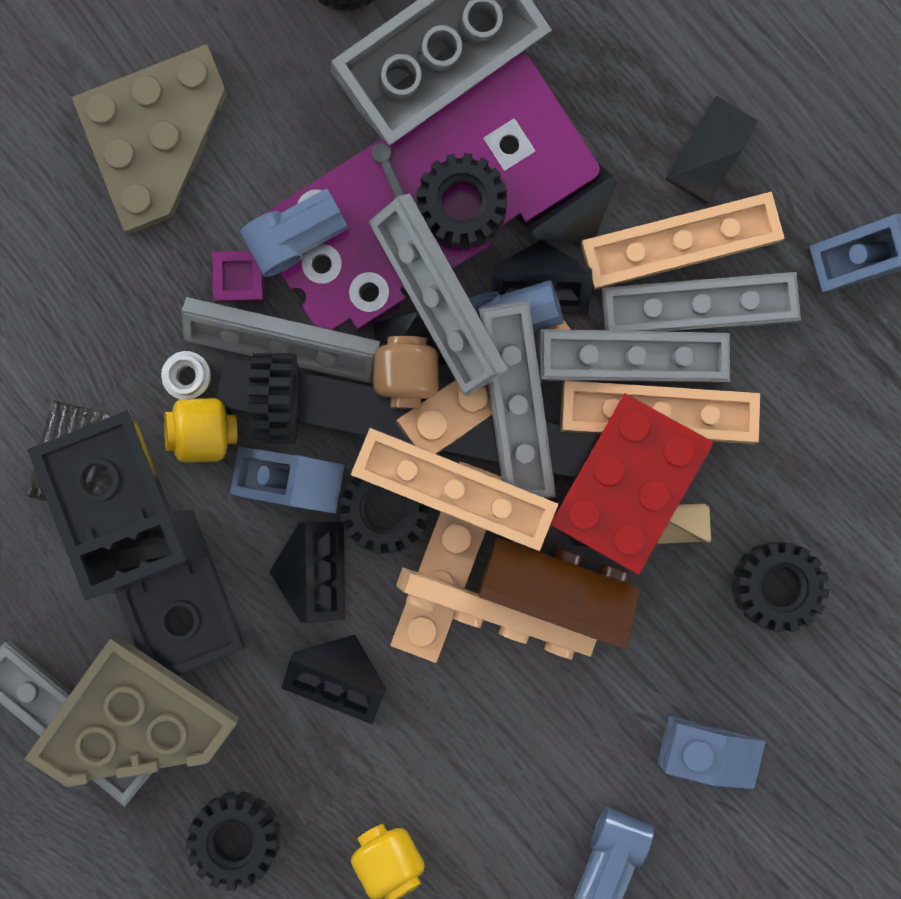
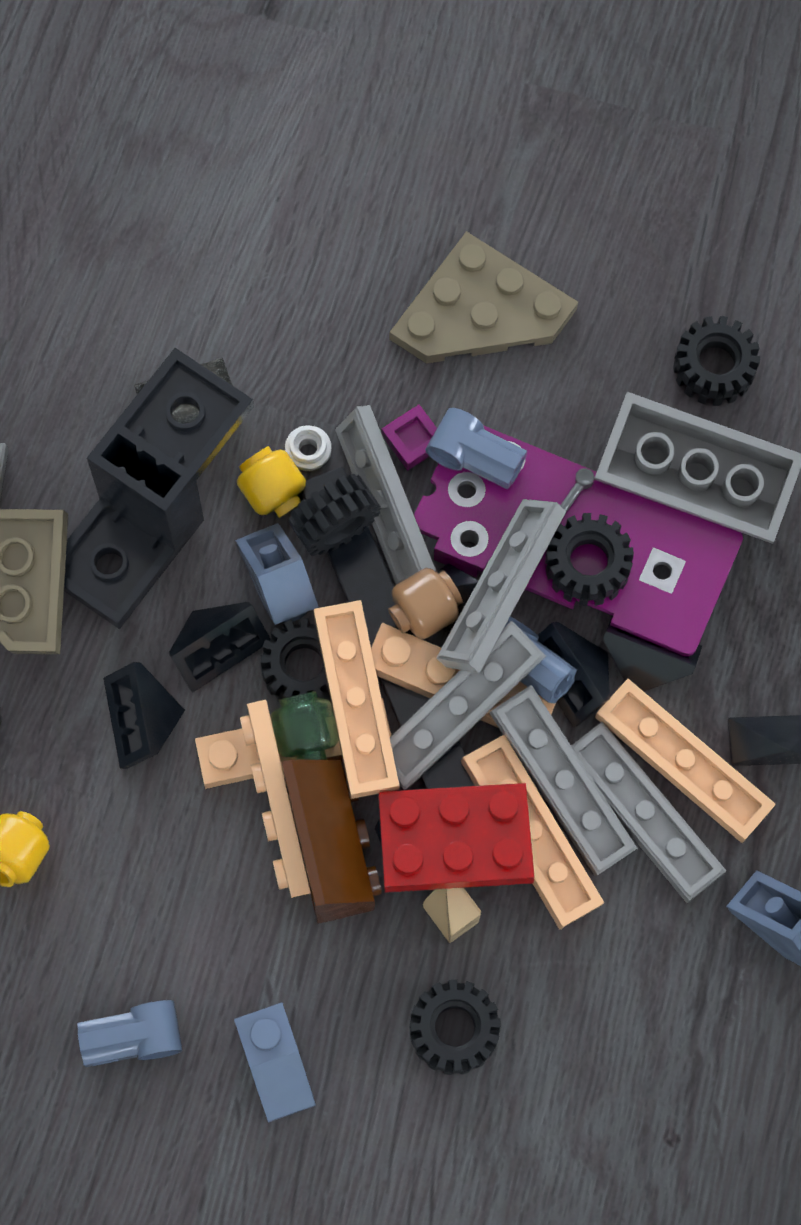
camera: 55 degrees right, 15 degrees down
(450, 550) = (304, 727): none -> clear green head

